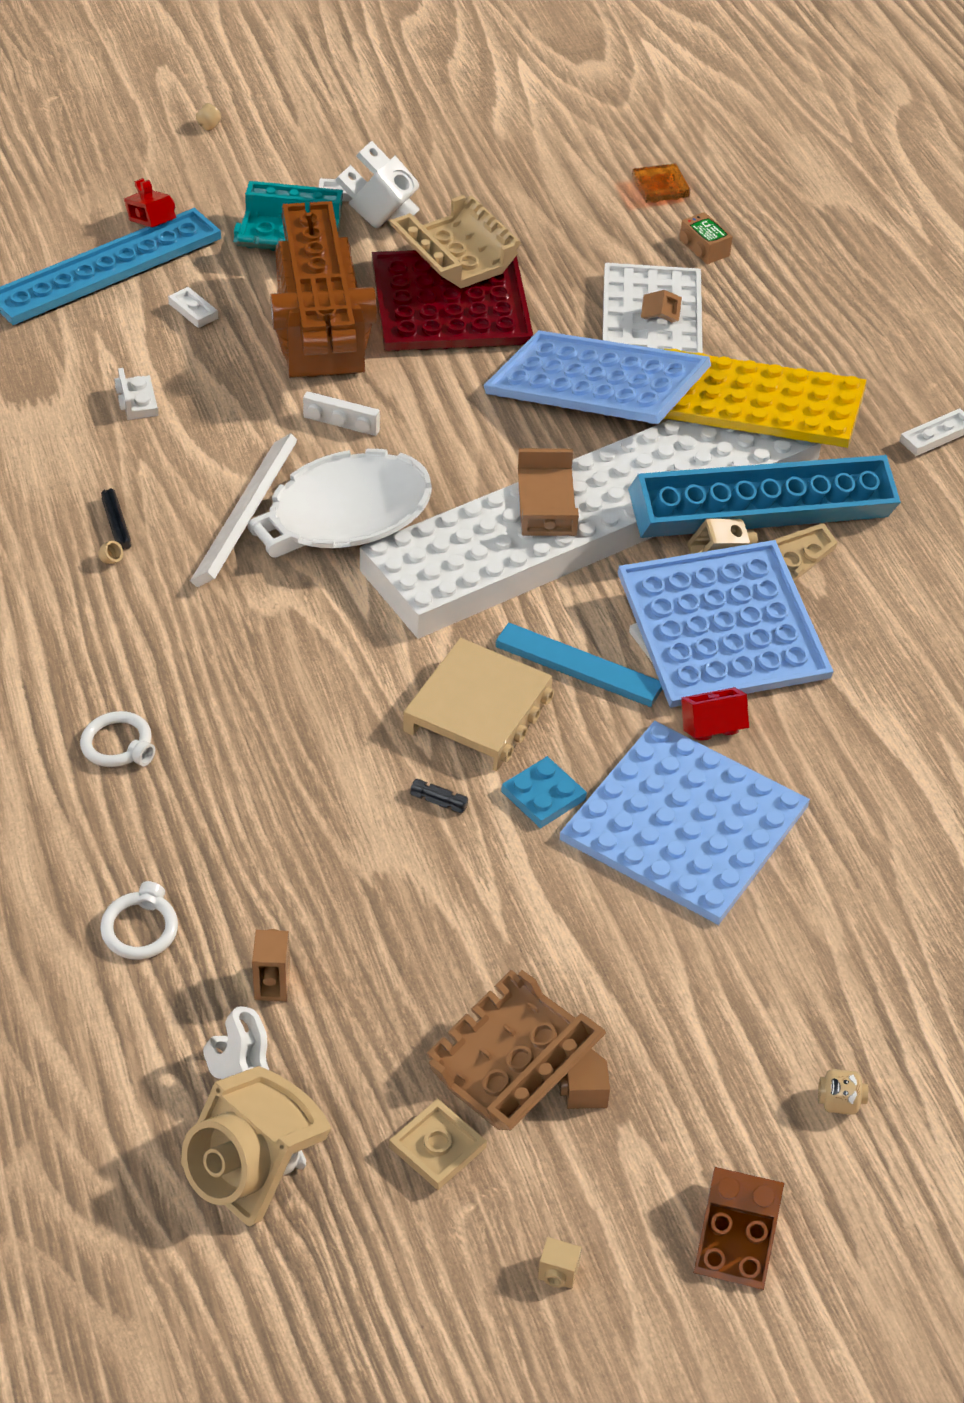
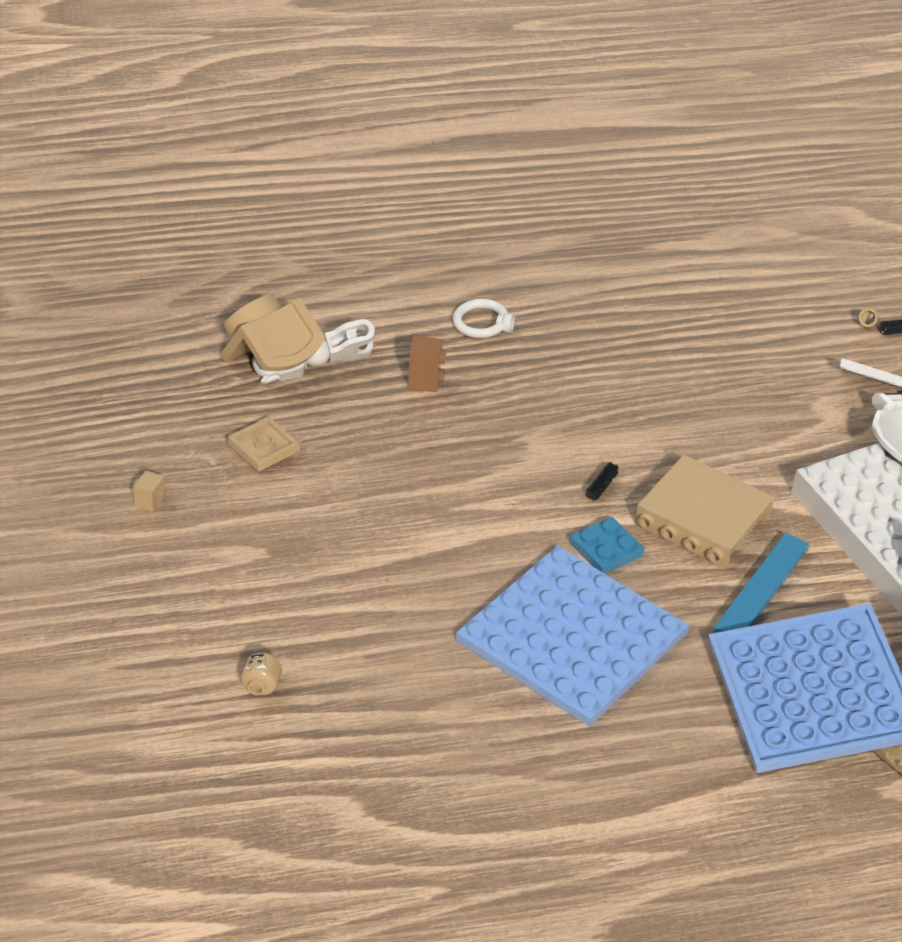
camera: 95 degrees right, 5 degrees down
(139, 751) = (648, 324): white piece -> none
(512, 1050) = (331, 476): medium nougat slope -> none
(587, 1083) = (309, 524): medium nougat slope -> none
(715, 713) = (691, 659): red brick -> none
(738, 1228) = (157, 592): dark orange slope -> none

